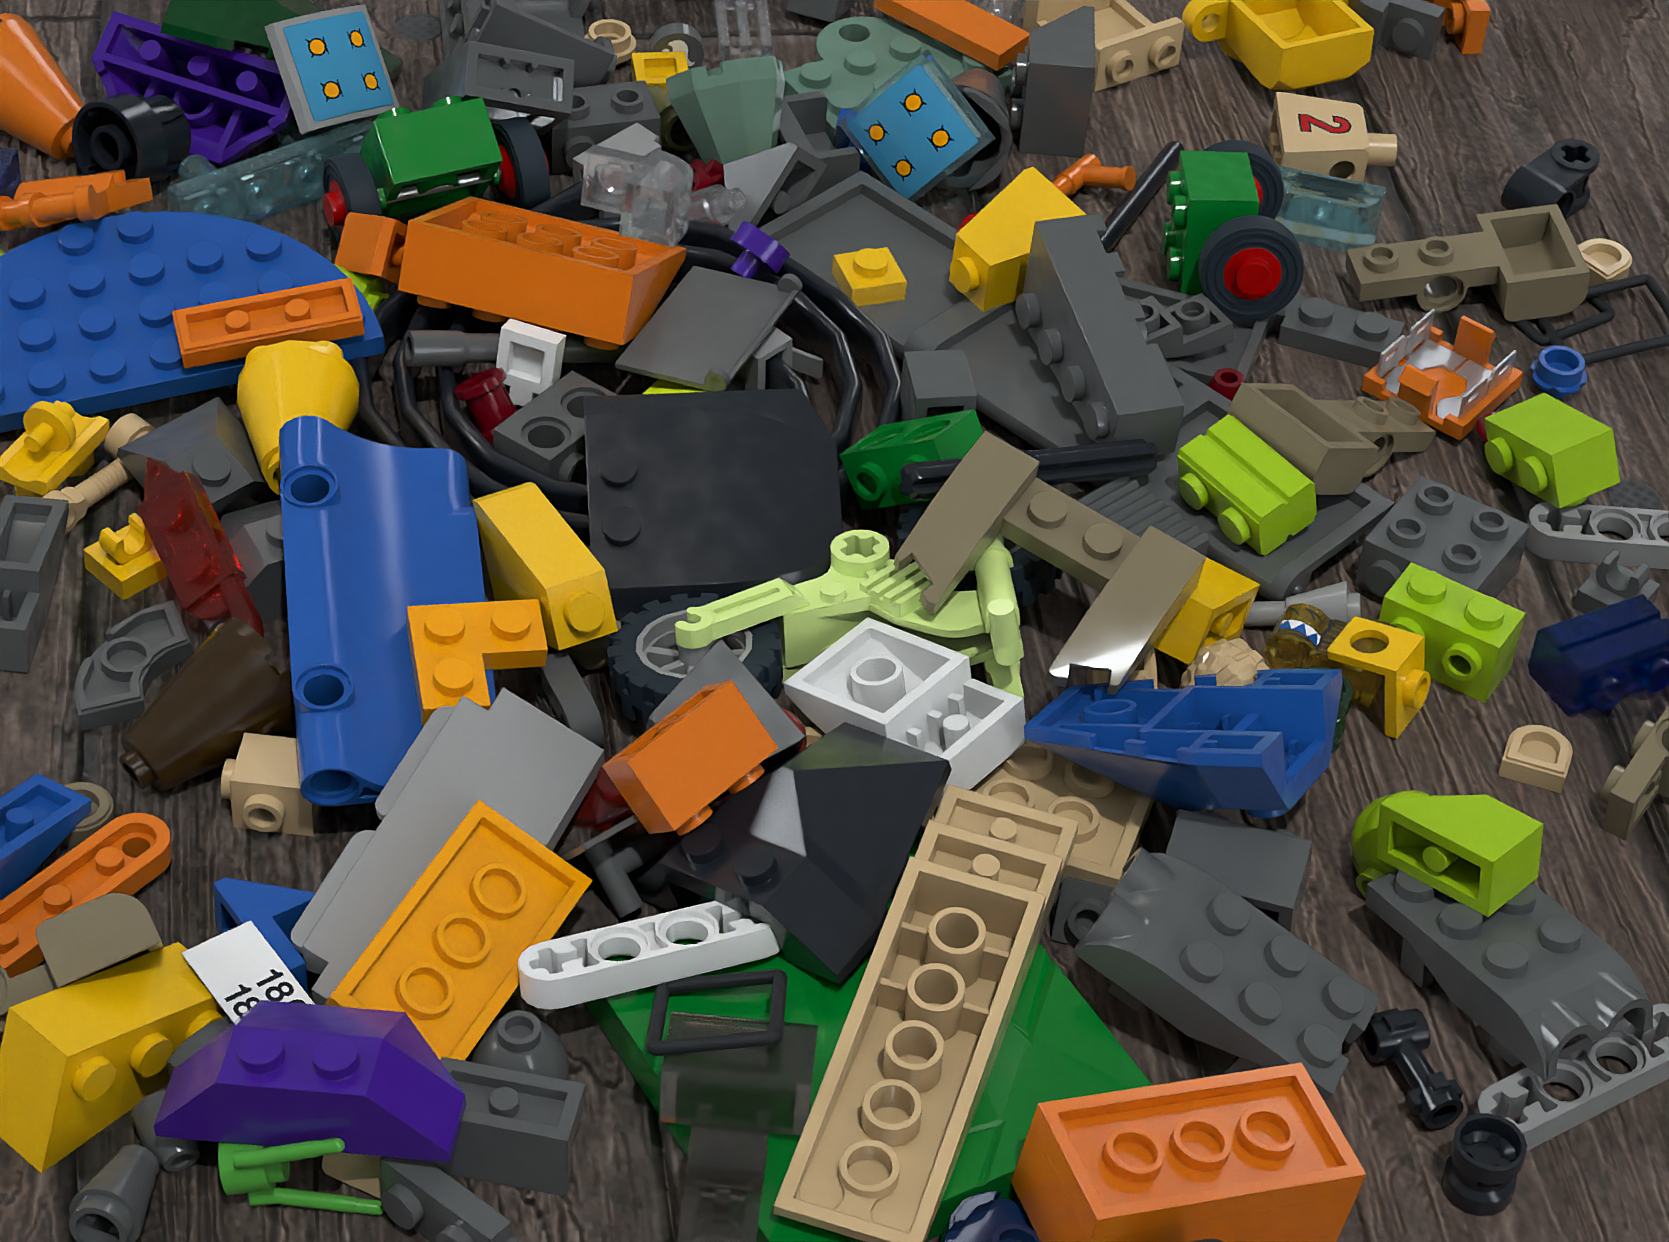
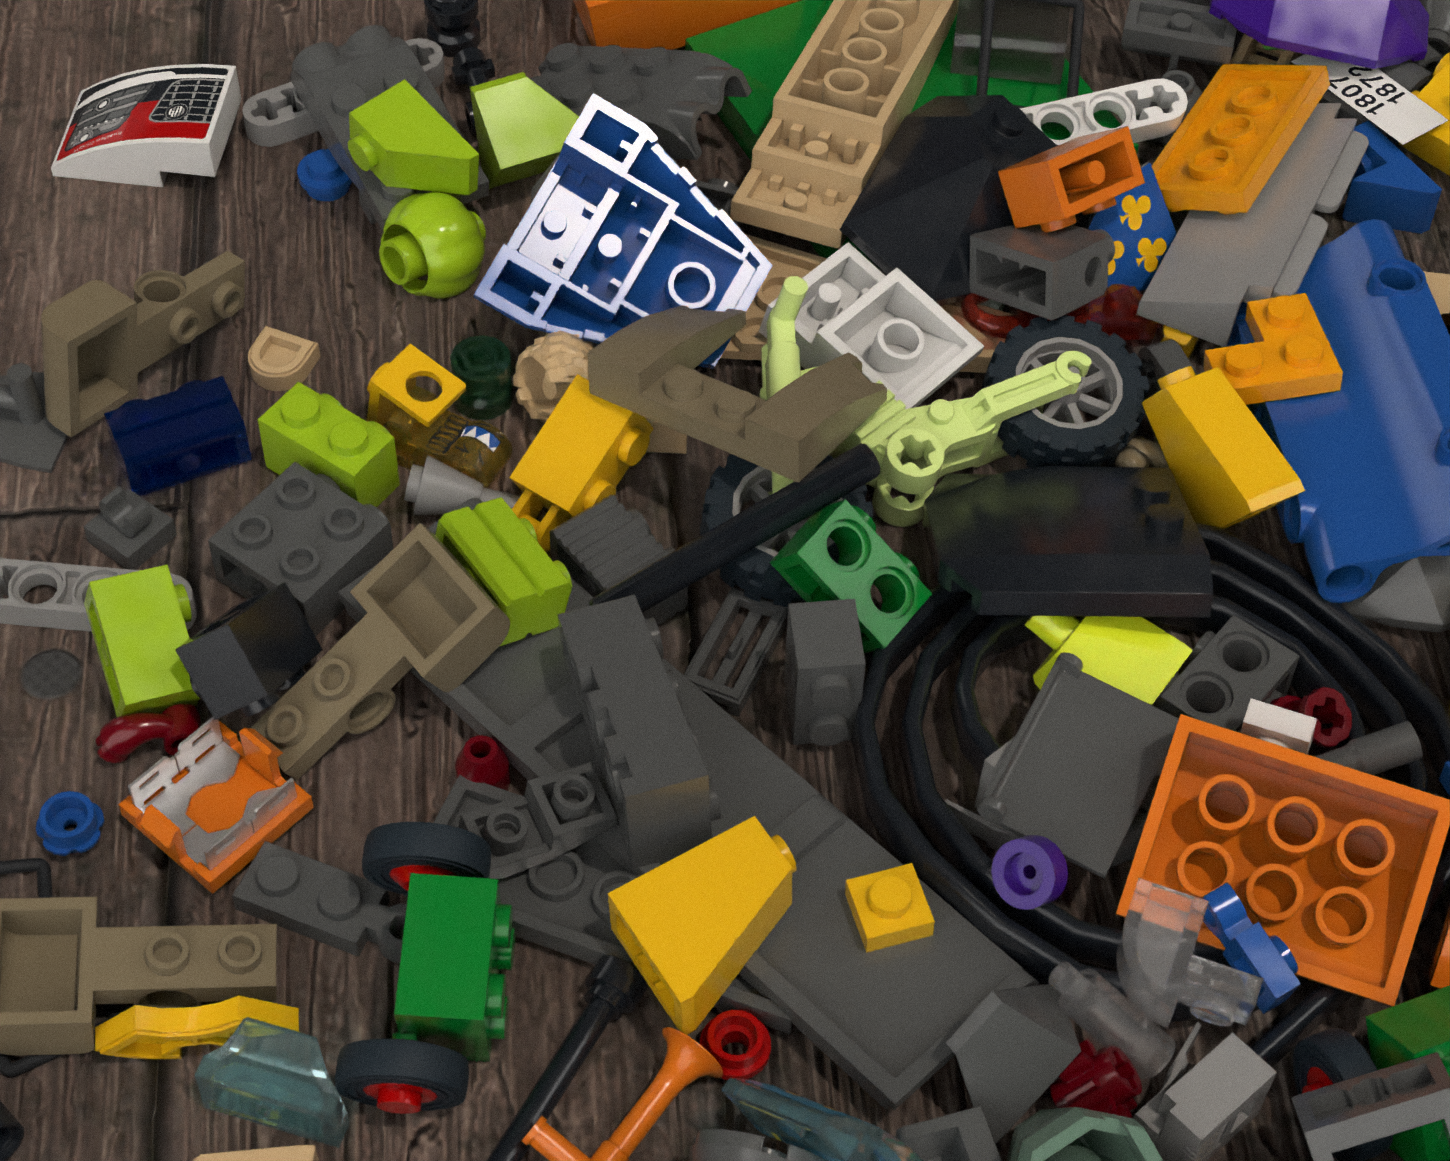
camera: 175 degrees left, 10 degrees up
(582, 192) = (1251, 948): none -> blue plate
(1350, 925) = (518, 128): none -> lime slope
(1369, 225) = (162, 1032): none -> yellow tile
(1453, 424) = (250, 653): none -> black brick

